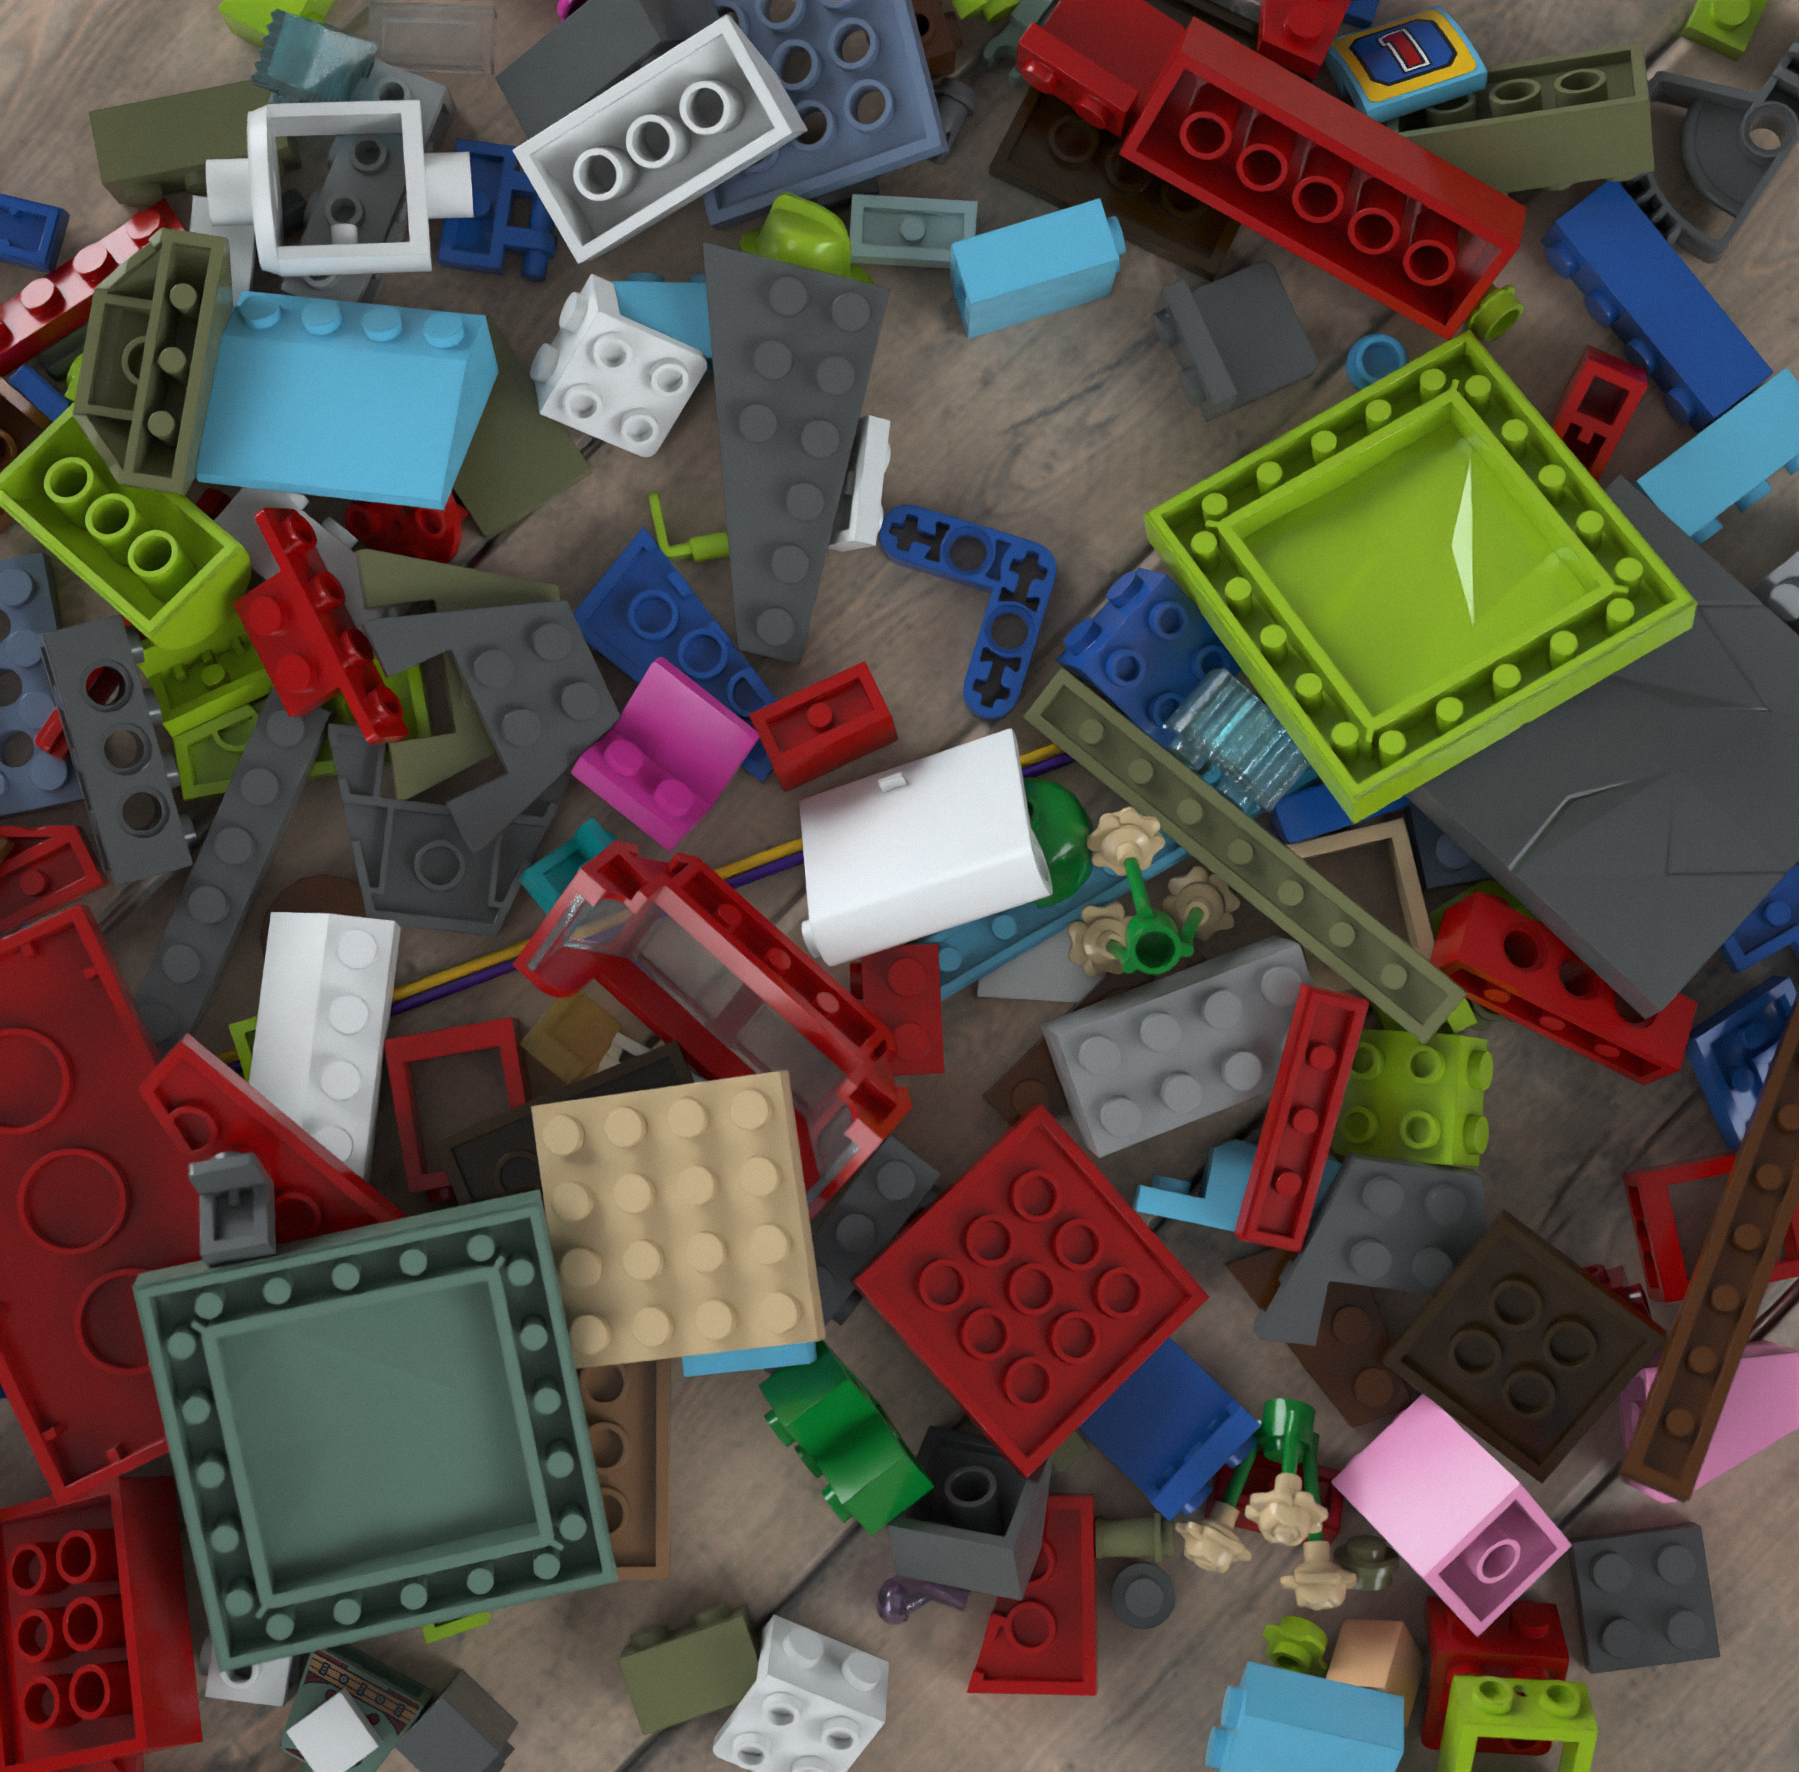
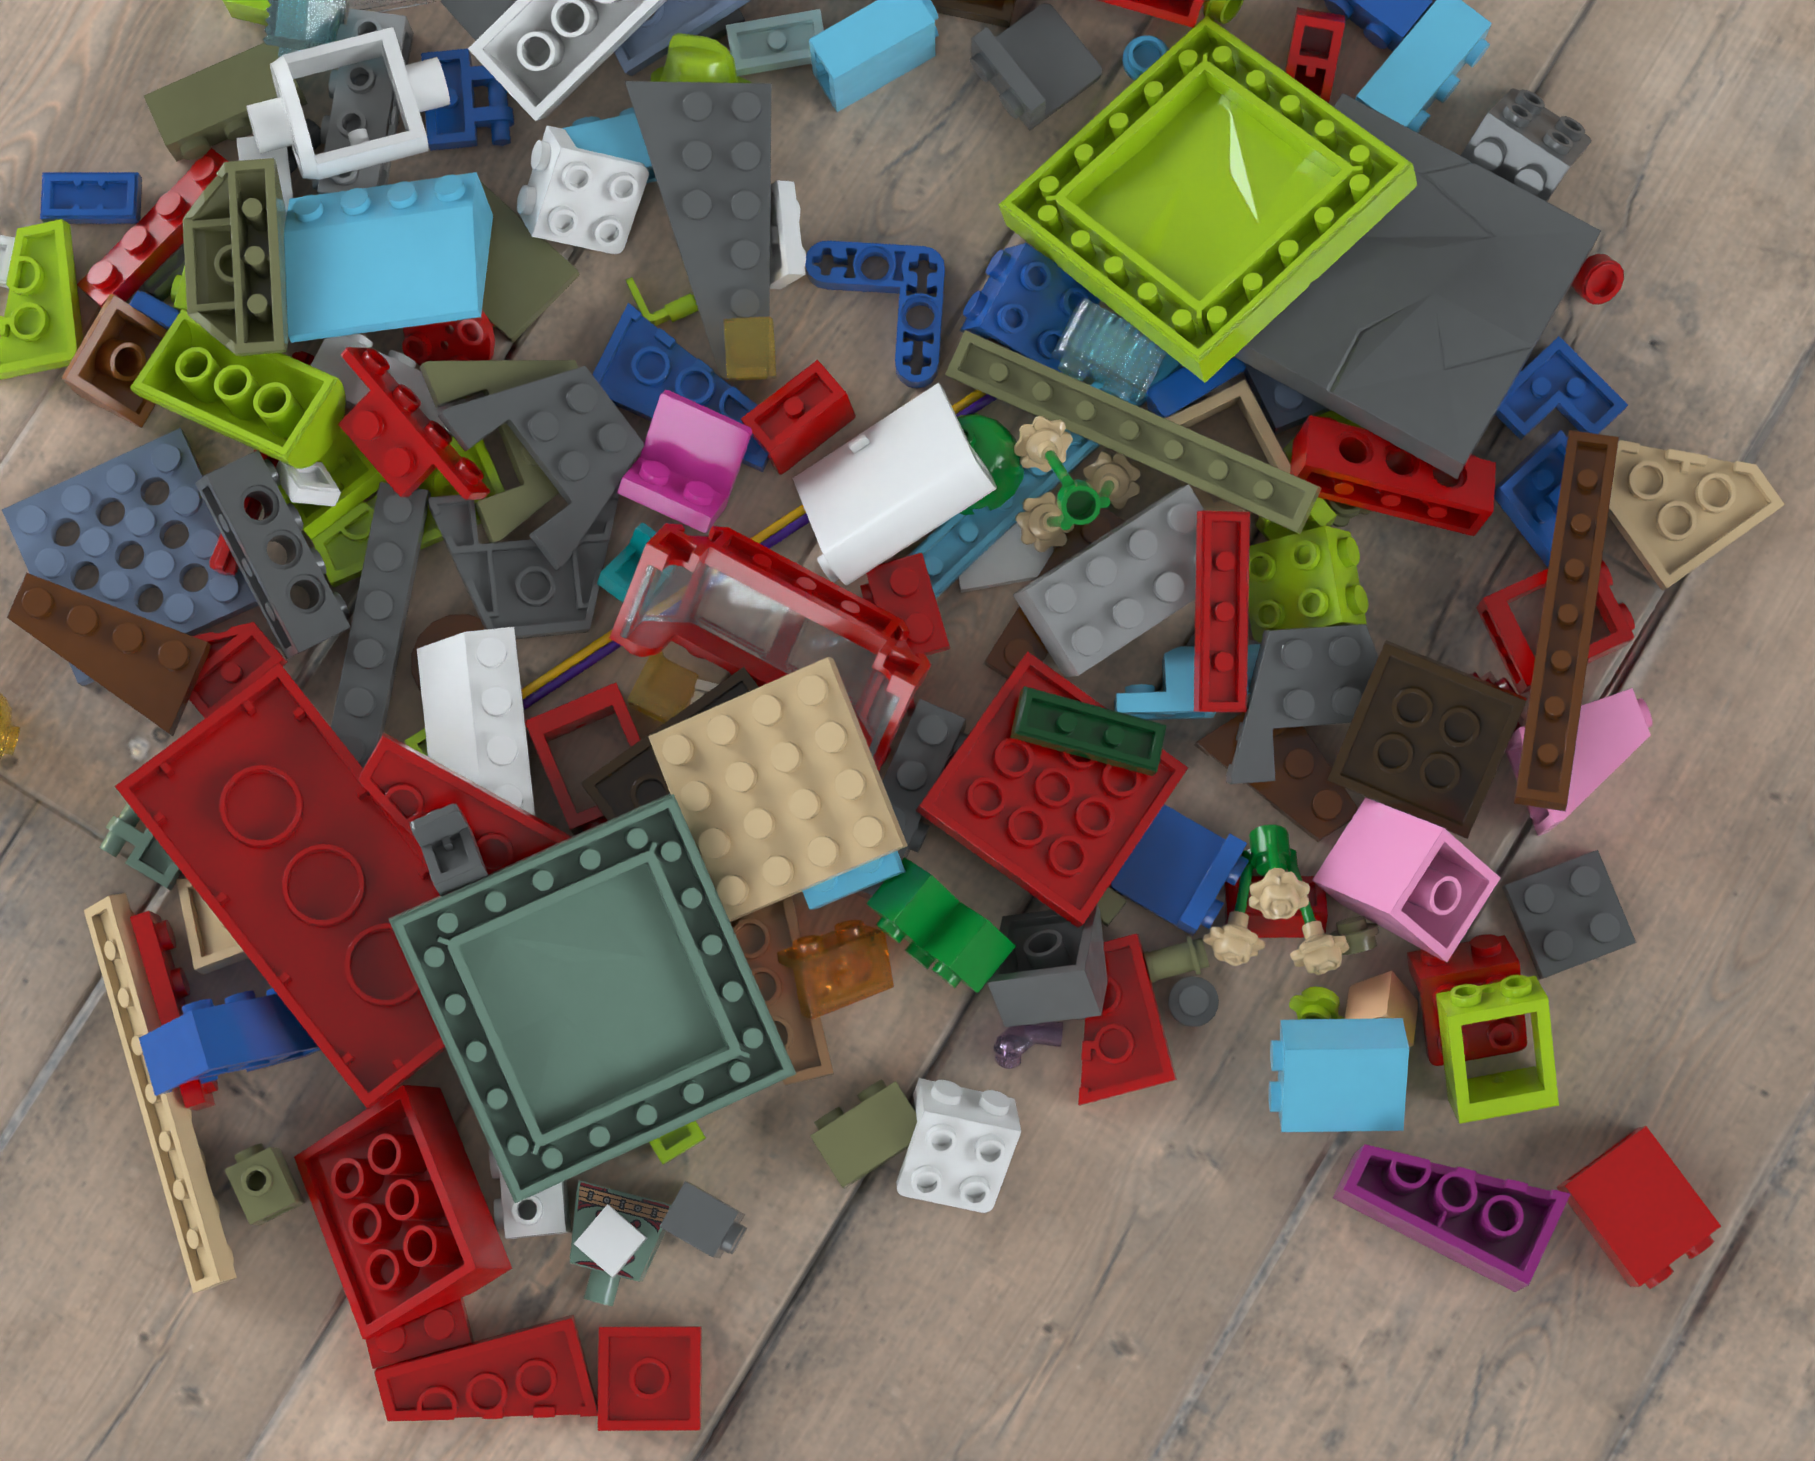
camera: 10 degrees left, 5 degrees down
(181, 672) = (308, 484): none -> white tile
(704, 1449) = (838, 967): none -> clear orange bracket
(780, 629) = (750, 348): none -> clear yellow panel
(1093, 1227) = (1088, 731): none -> dark green tile

